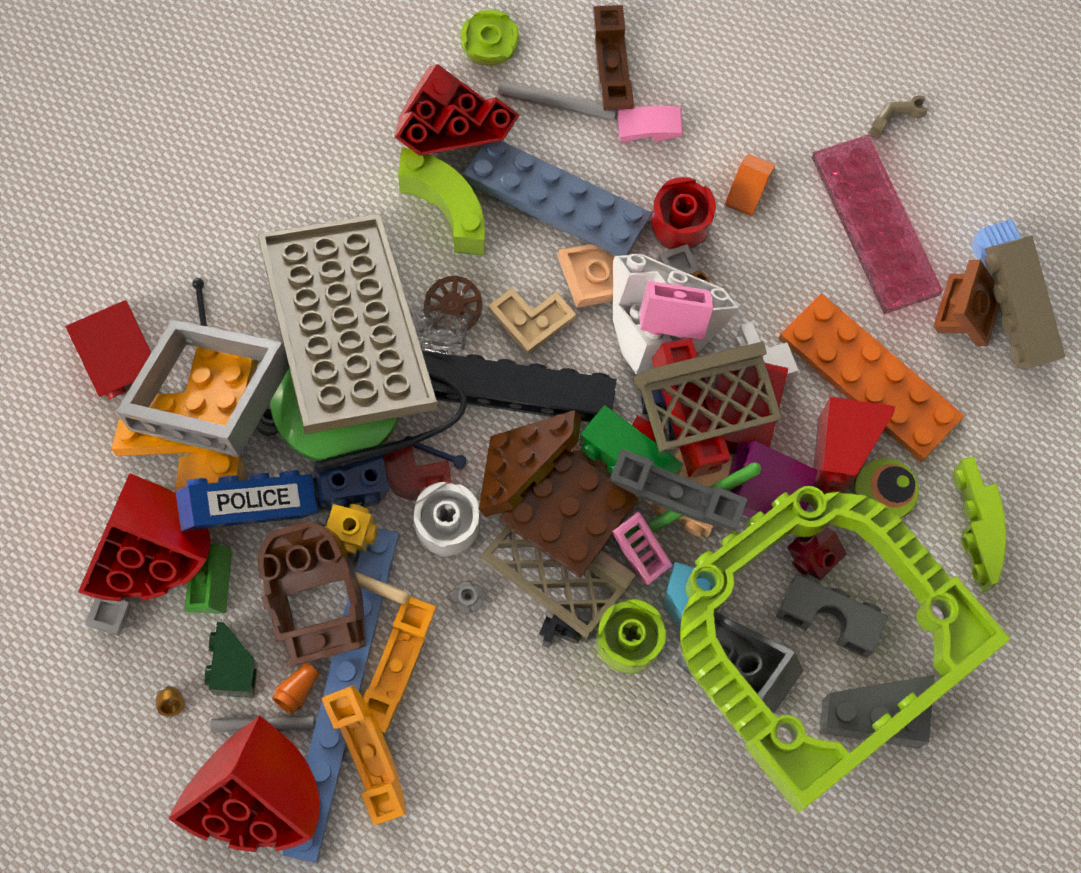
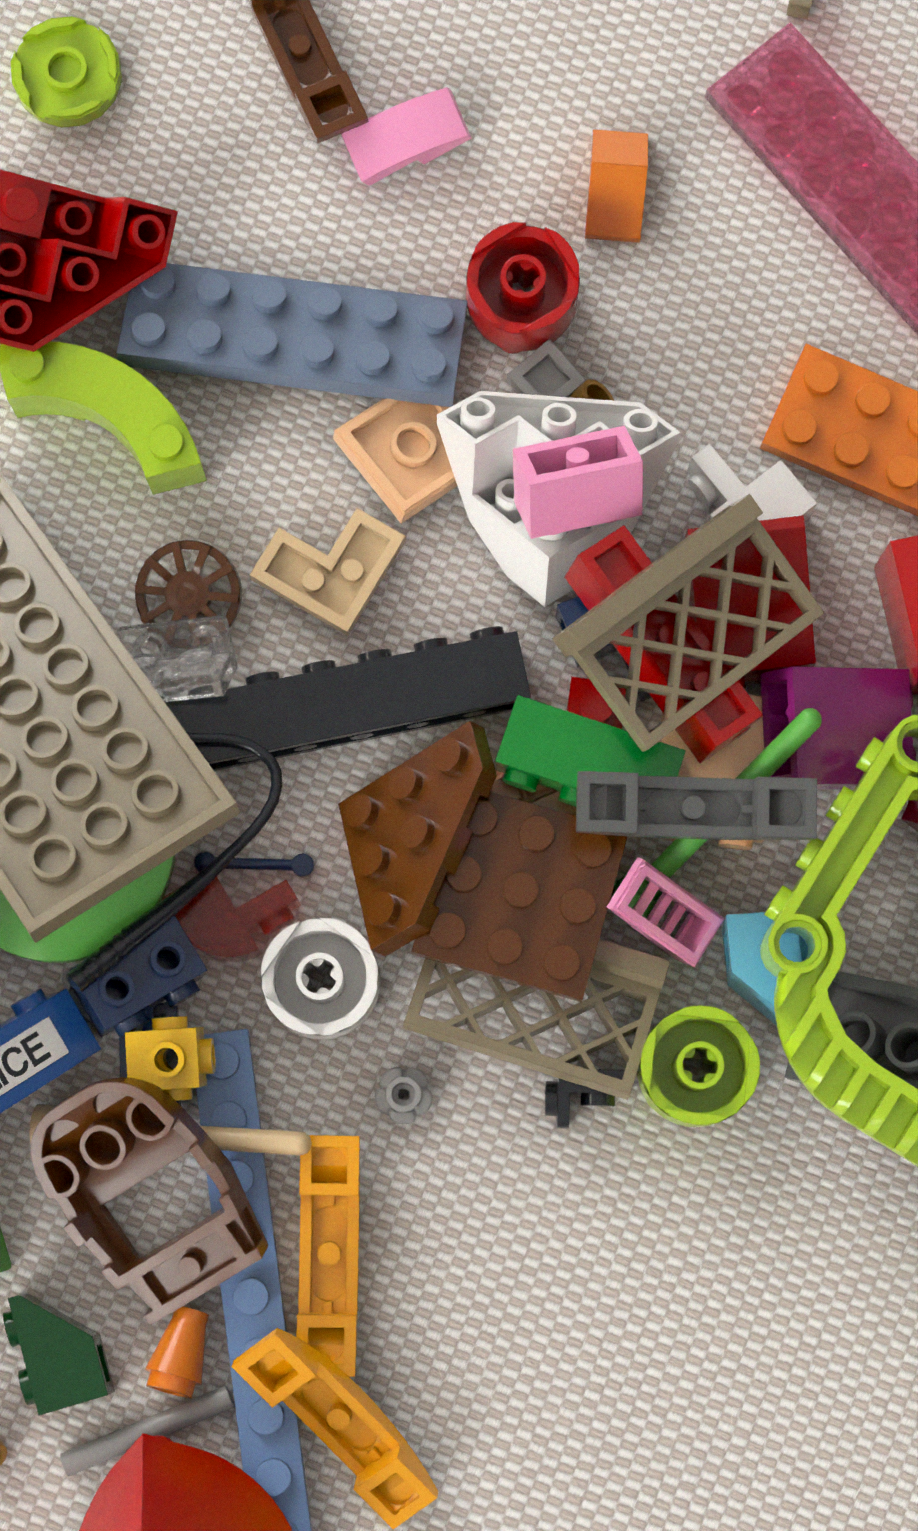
camera: 15 degrees left, 10 degrees up
(555, 100) = (222, 150): light grey bar -> none

